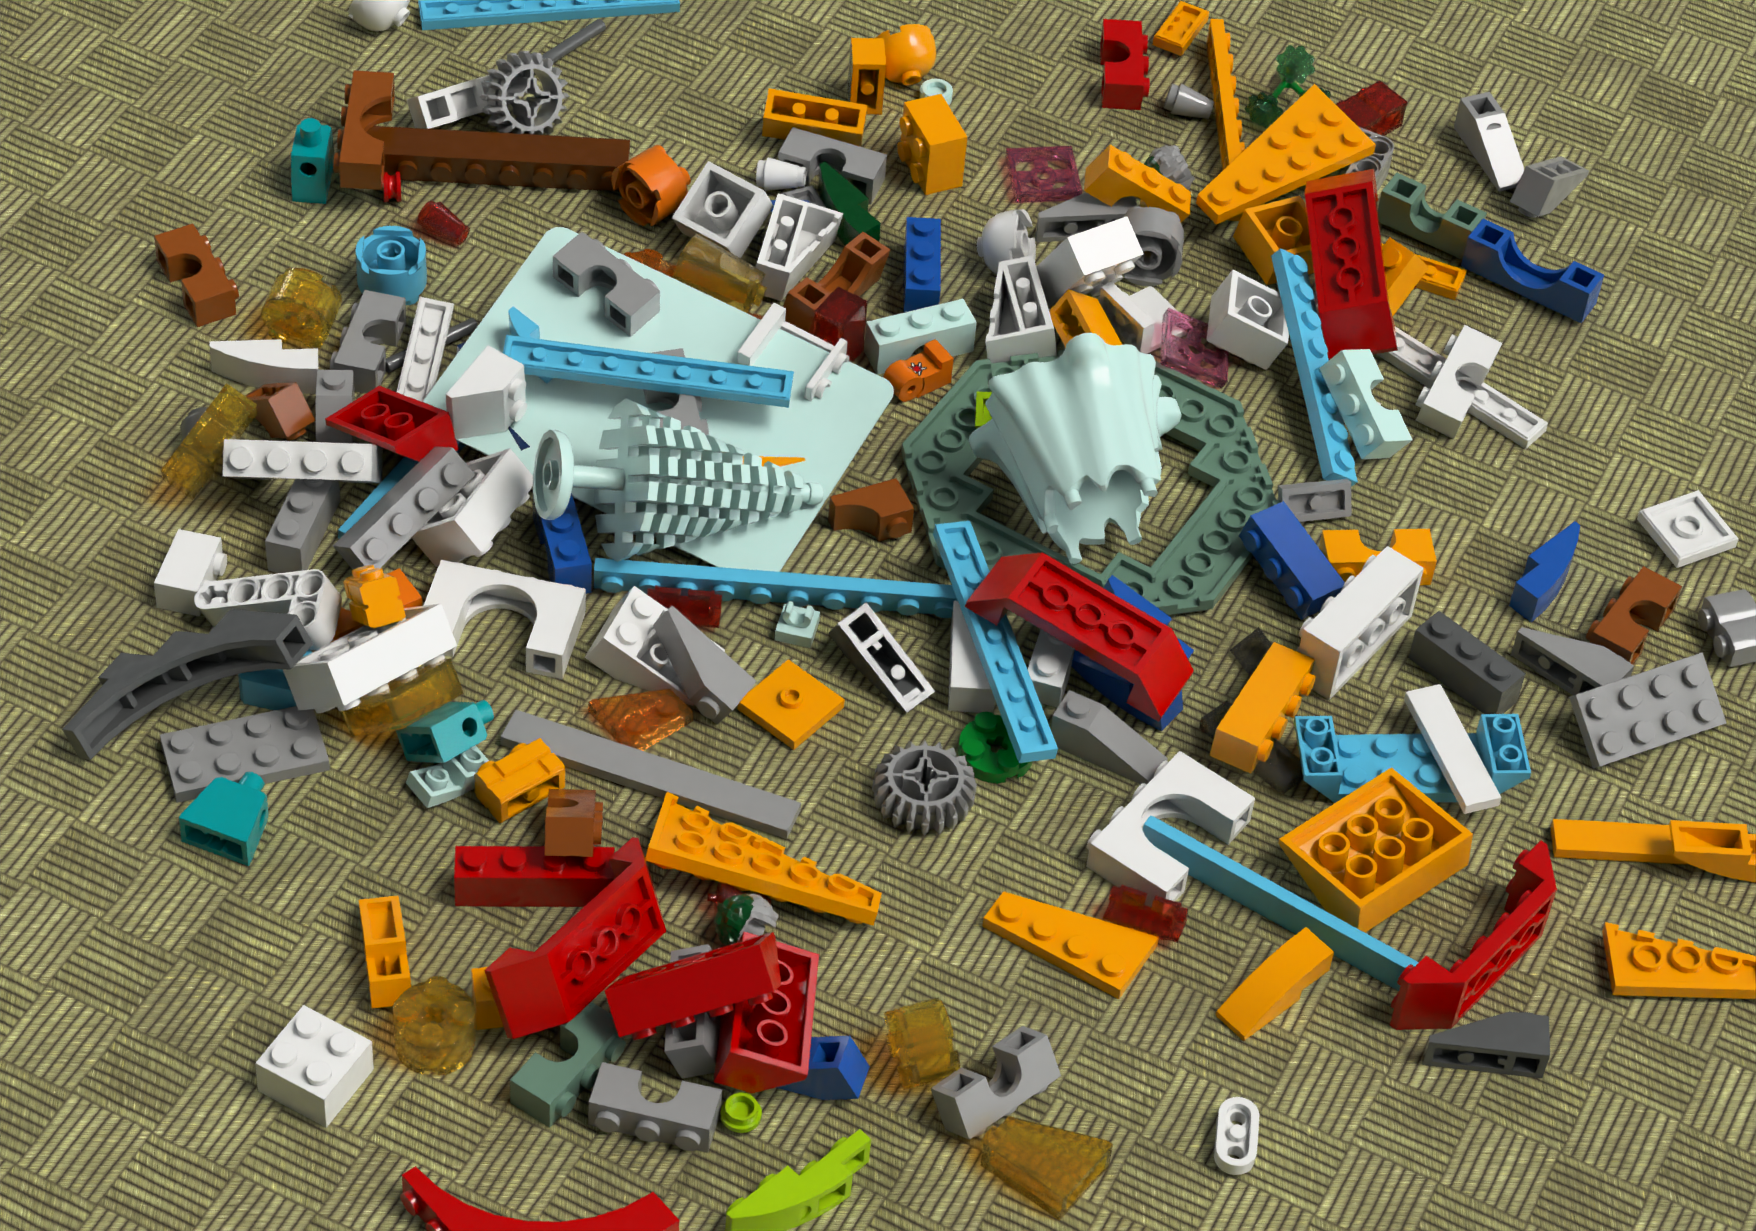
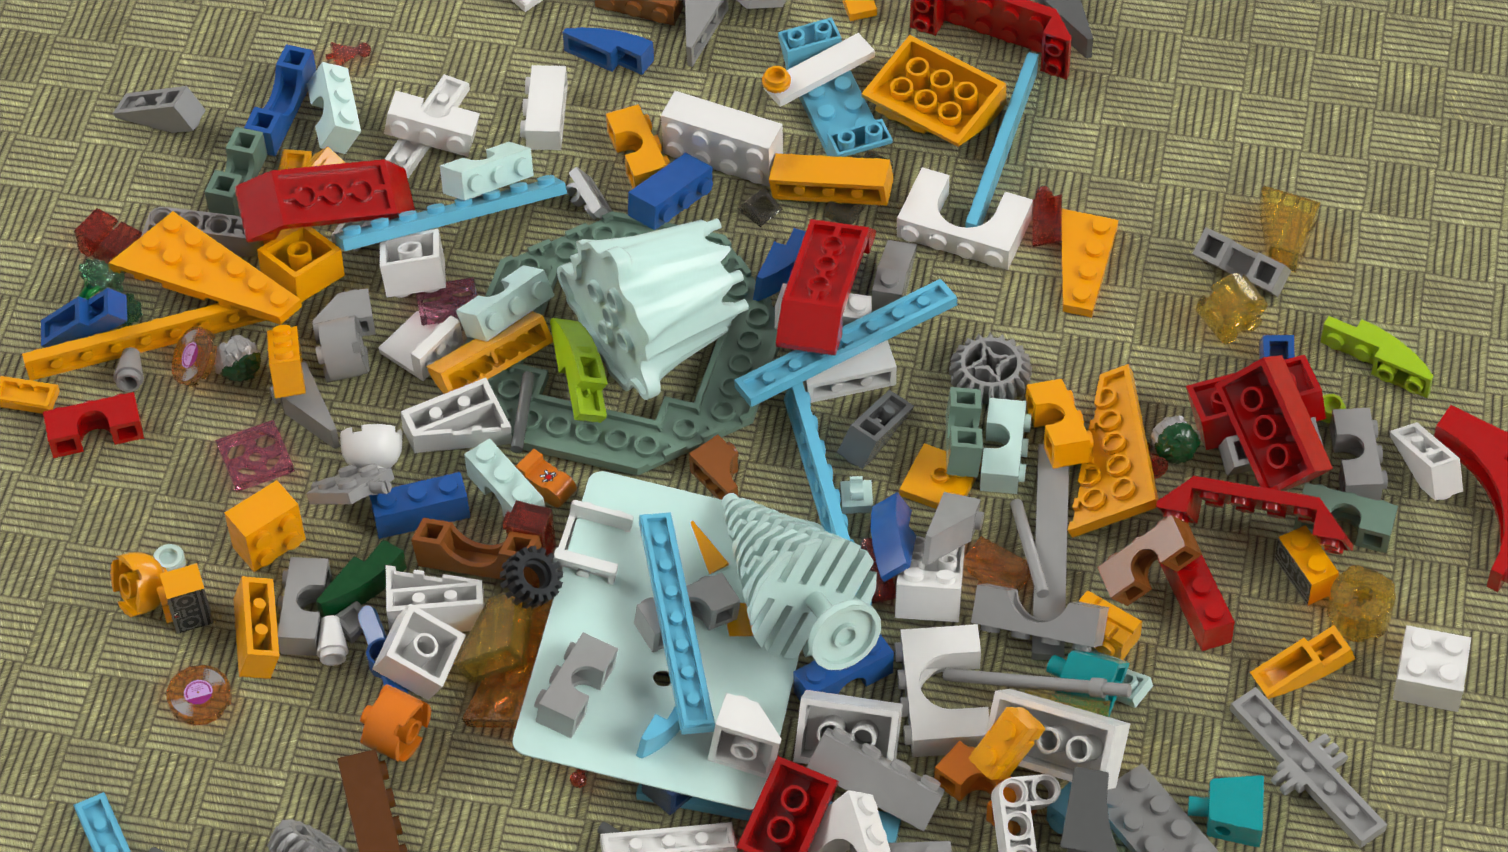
camera: 100 degrees left, 5 degrees up
(249, 907) = (1308, 767): none -> light grey hinge
(421, 709) = (1095, 687): none -> light grey bar
(517, 723) = (1001, 608): none -> light grey arch
(614, 1178) = (1429, 460): none -> white slope
(655, 746) = (1029, 548): none -> light grey bar
(715, 616) = (892, 536): none -> blue slope
(745, 268) = (517, 583): none -> black tyre
(755, 77) = (199, 695): none -> clear orange tile
(786, 818) = (1065, 435): none -> light orange arch
(833, 781) = (1002, 466): none -> light aqua arch
(850, 731) = (963, 434): none -> sand green arch
(954, 208) = (351, 485): none -> light grey plate
(976, 747) = (931, 356): green plate -> none
(990, 359) = (522, 412): none -> dark grey bar
(1089, 260) = (398, 367): white brick -> none
(1149, 339) = (489, 316): none -> light aqua arch
(1185, 141) = (194, 356): none -> clear orange tile
(1201, 268) = (349, 304): none -> light grey slope
(1236, 1139) = (1208, 134): white plate -> none
(1256, 72) = (84, 318): none -> blue slope
(1276, 984) = (1073, 134): light orange slope -> none
(1433, 686) = (776, 79): none -> light orange plate
(1466, 493) = (544, 107): none -> white brick
(1466, 665) = (732, 72): dark grey brick -> none
(1489, 138) = (120, 152): light grey slope -> none
(1523, 309) = (339, 123): none -> light aqua arch
(1603, 343) = (344, 53): none -> clear red piece

